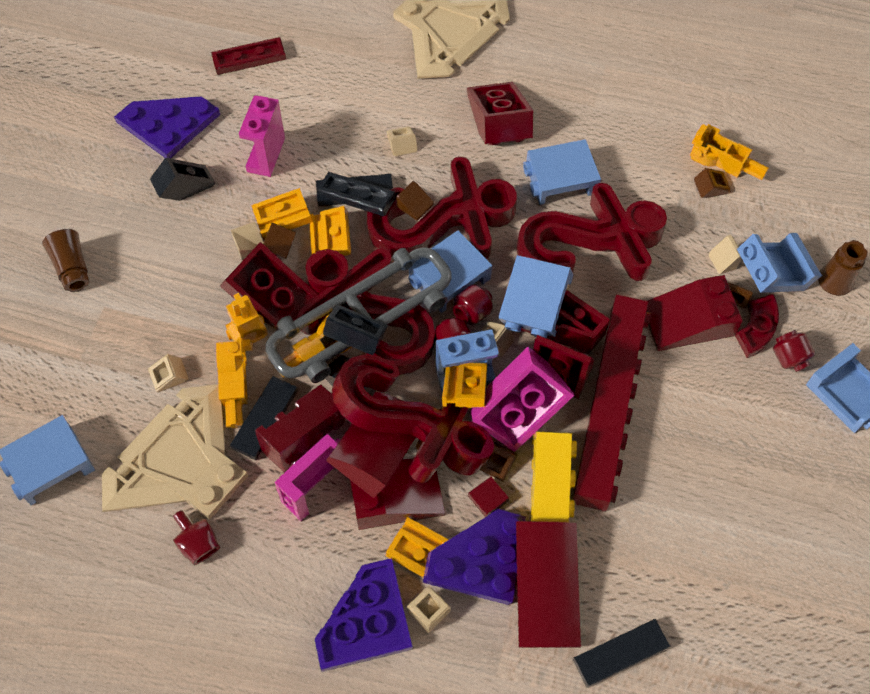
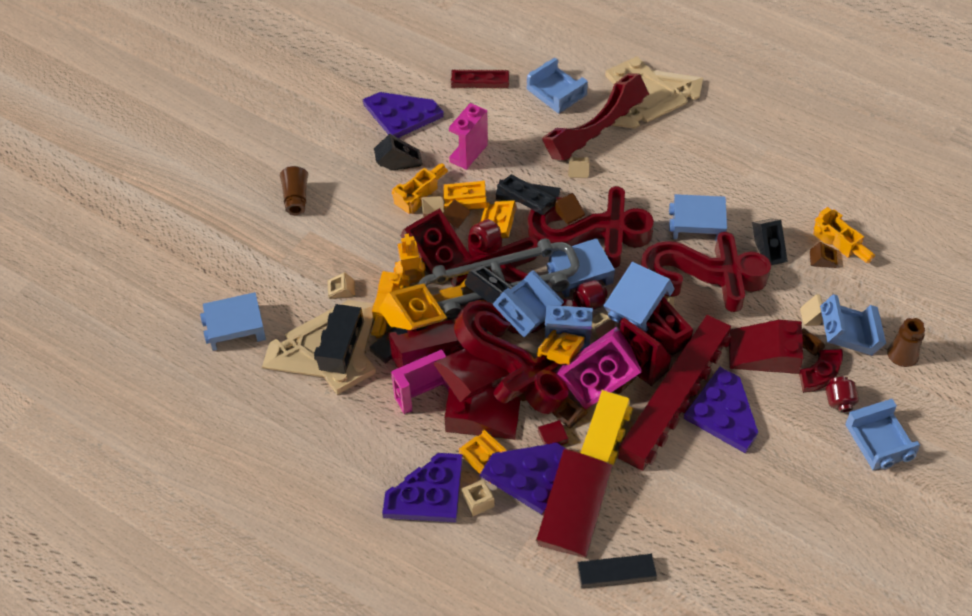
camera: 20 degrees right, 10 degrees down
(190, 449) = (339, 338): none -> black brick
(196, 540) = (322, 404): dark red piece -> none
(226, 211) = (419, 186): none -> light orange piece
(270, 386) = (411, 308): none -> light orange slope
(326, 263) = (484, 235): none -> dark red head
(342, 45) = (555, 86): none -> medium blue panel
(410, 341) = (526, 303): none -> medium blue panel
(430, 38) = (625, 94): none -> dark red arch
(501, 113) = (665, 164): dark red slope -> none
(650, 178) = (770, 240): none -> black slope
(672, 408) = (724, 411): none -> dark purple plate

